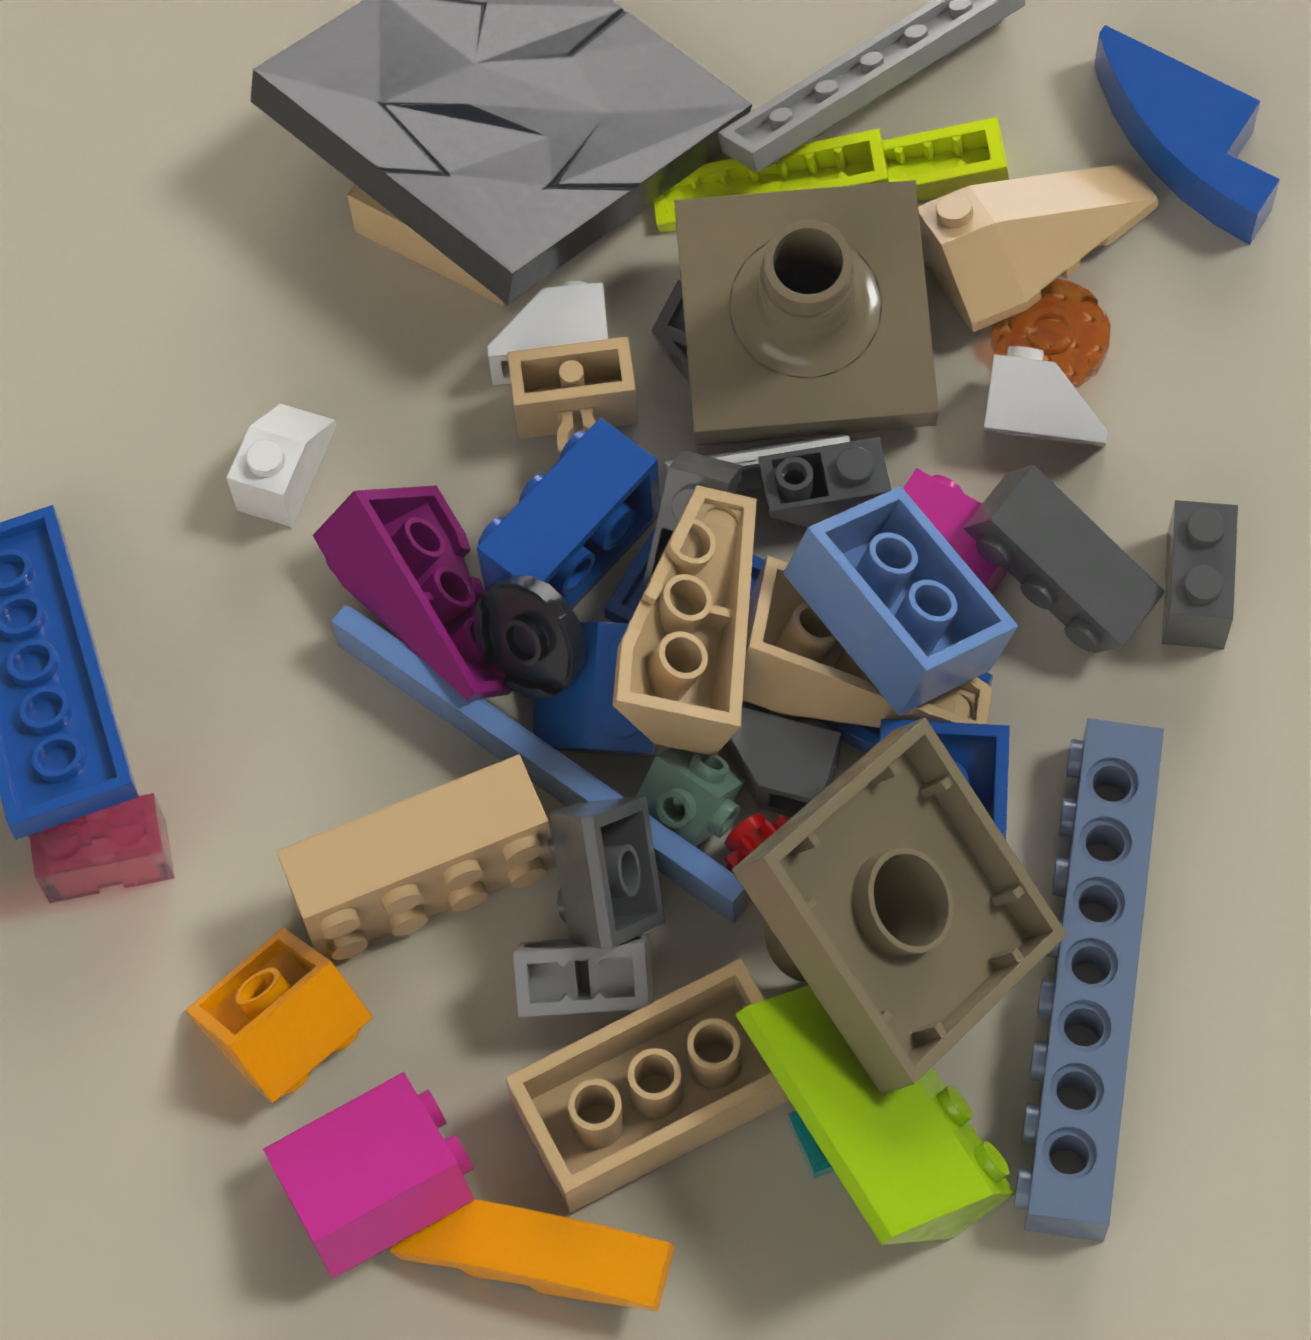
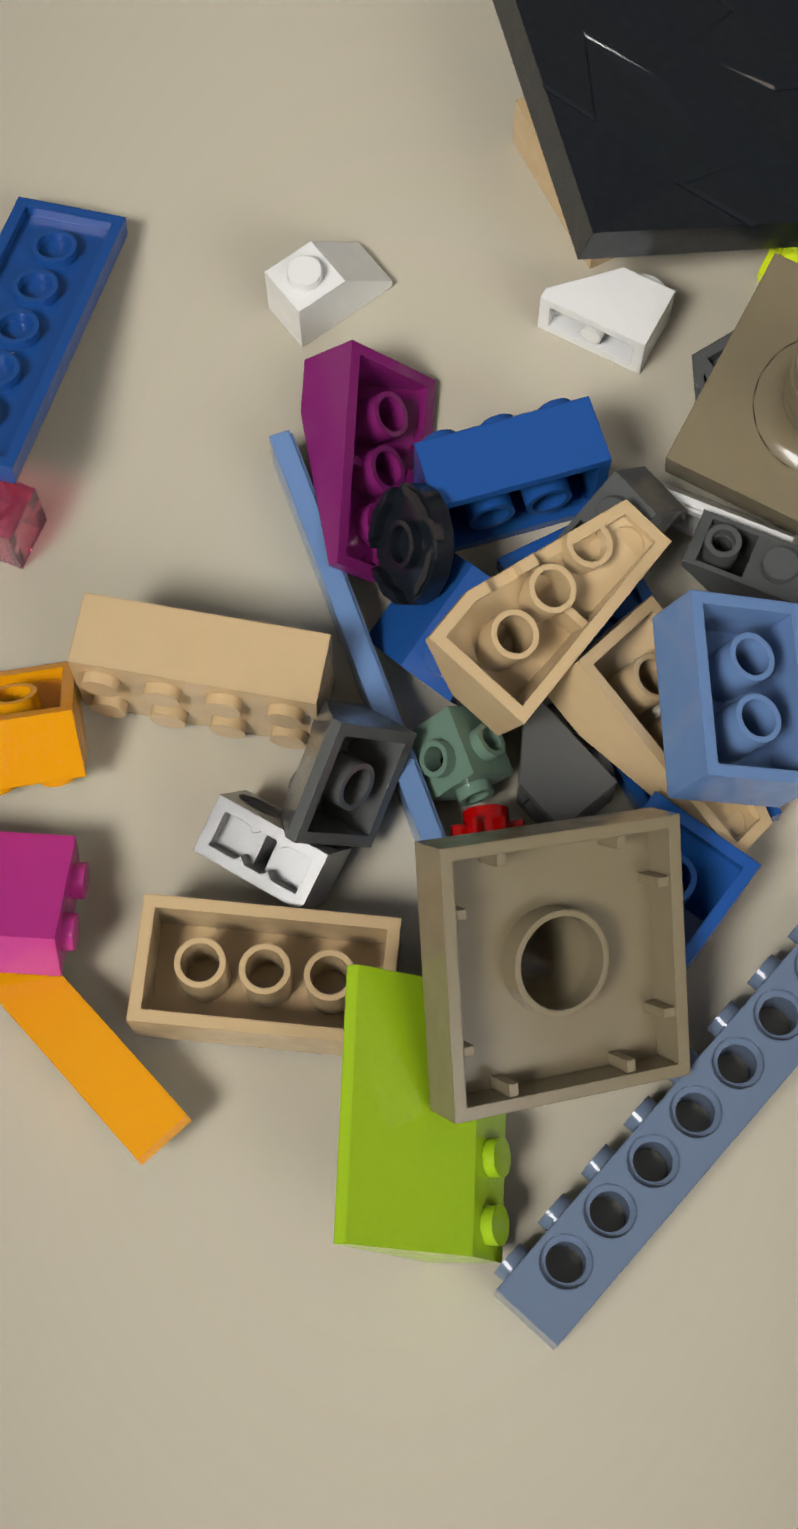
camera: 30 degrees right, 5 degrees up
(572, 387) = (592, 358): tan brick -> none

